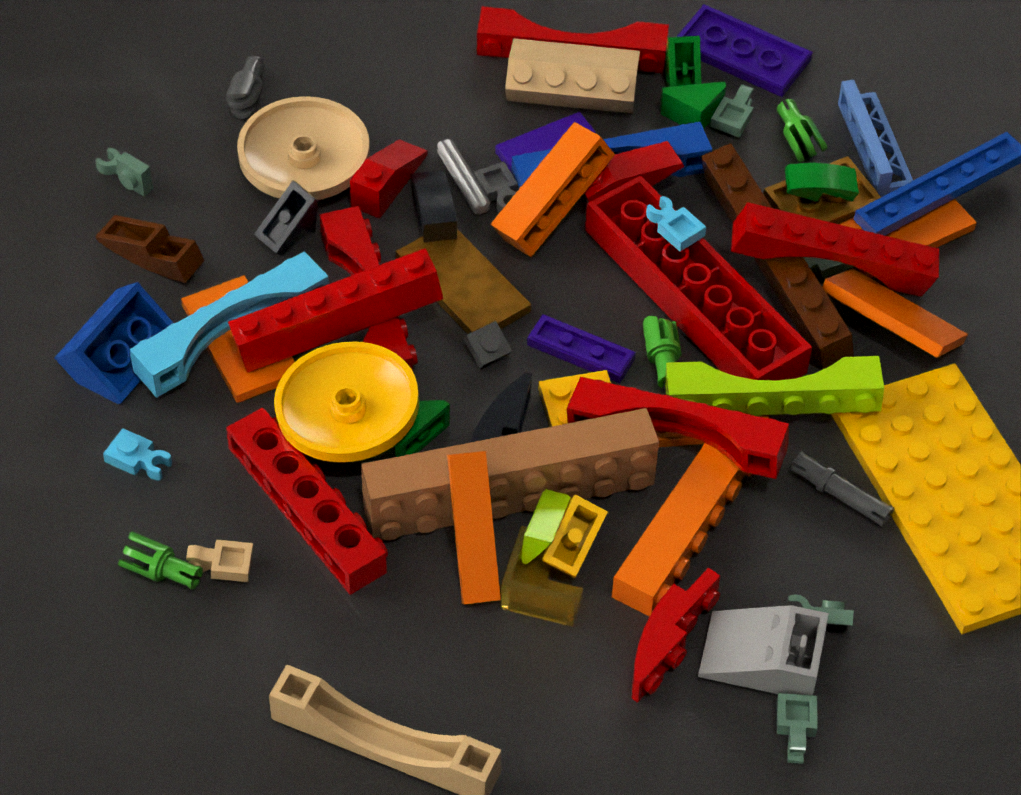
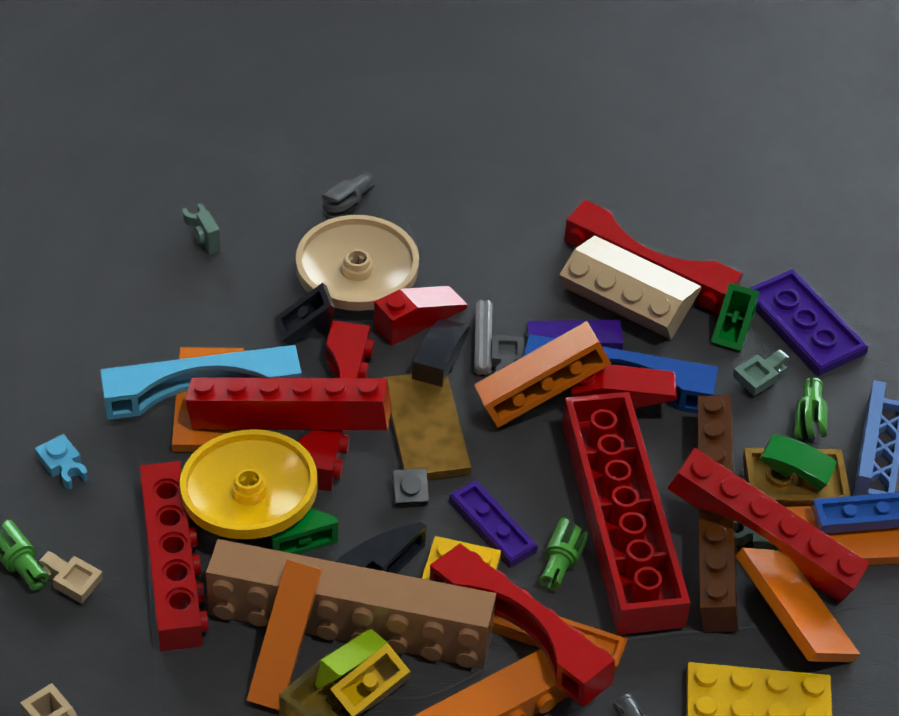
camera: 25 degrees right, 5 degrees down
(100, 351) = (79, 363): blue slope -> none
(151, 247) = (184, 297): reddish brown slope -> none
(678, 226) = (629, 448): medium azure plate -> none
(692, 102) = (726, 349): green slope -> none
(845, 386) = (700, 650): lime arch -> none

